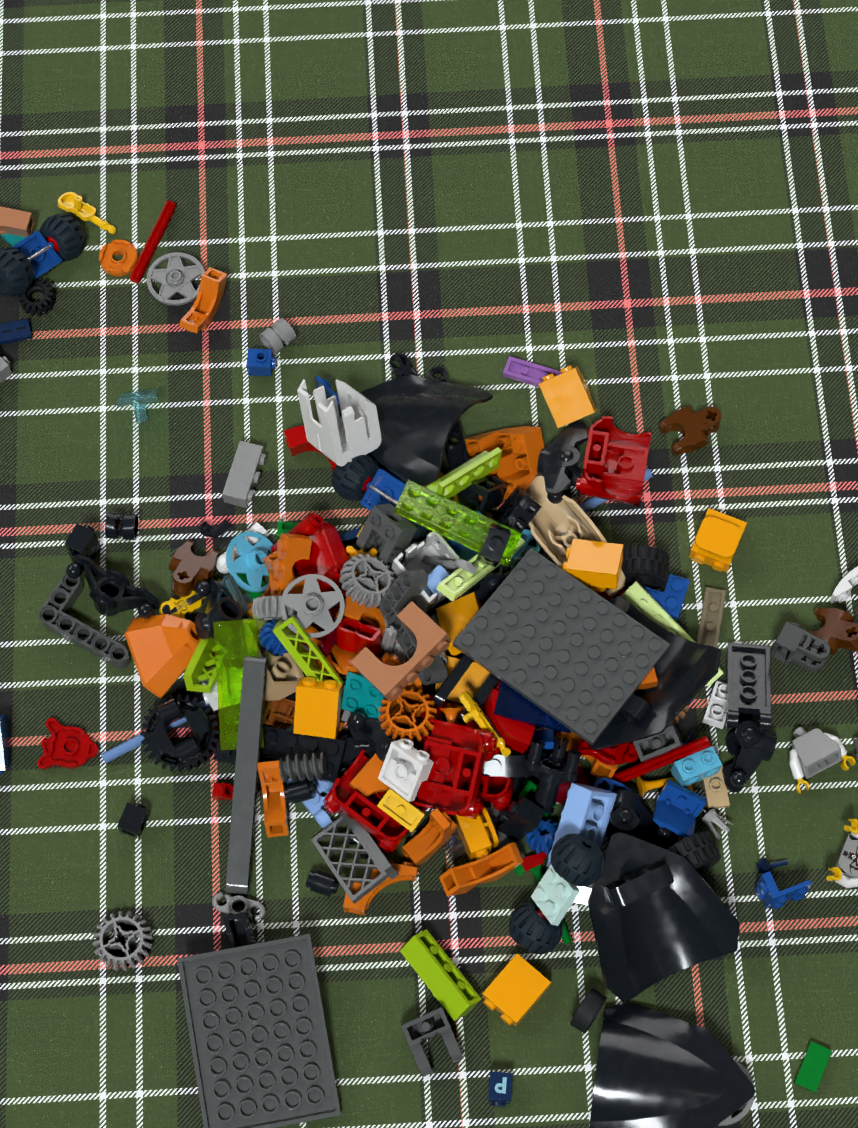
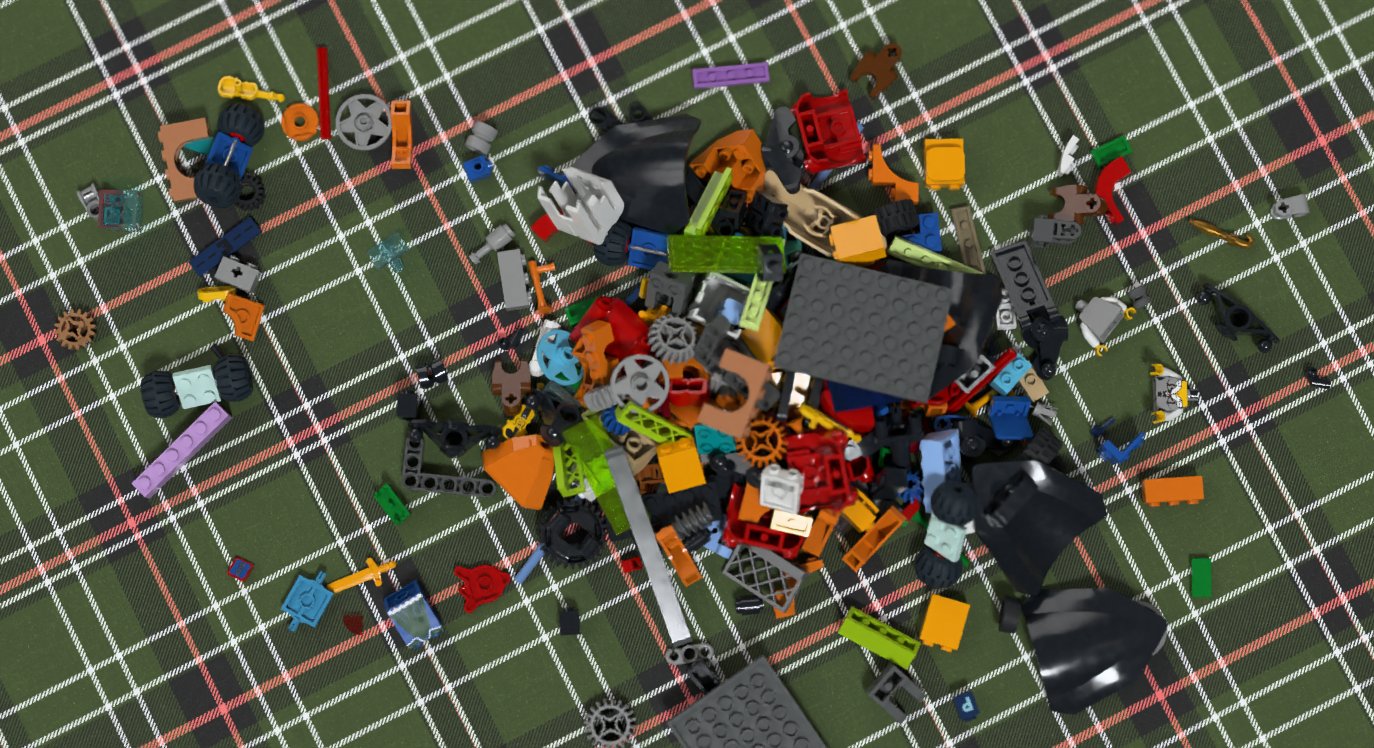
camera: 25 degrees left, 15 degrees up
(20, 632) = (392, 504): none -> green hinge
(245, 432) = (495, 241): none -> light grey piece
(259, 510) = (534, 271): none -> orange piece
(447, 564) = (734, 292): light grey piece -> none
(567, 396) = (762, 88): light orange brick -> none
(652, 529) = (883, 176): none -> orange arch
(819, 960) = (1172, 490): none -> orange brick

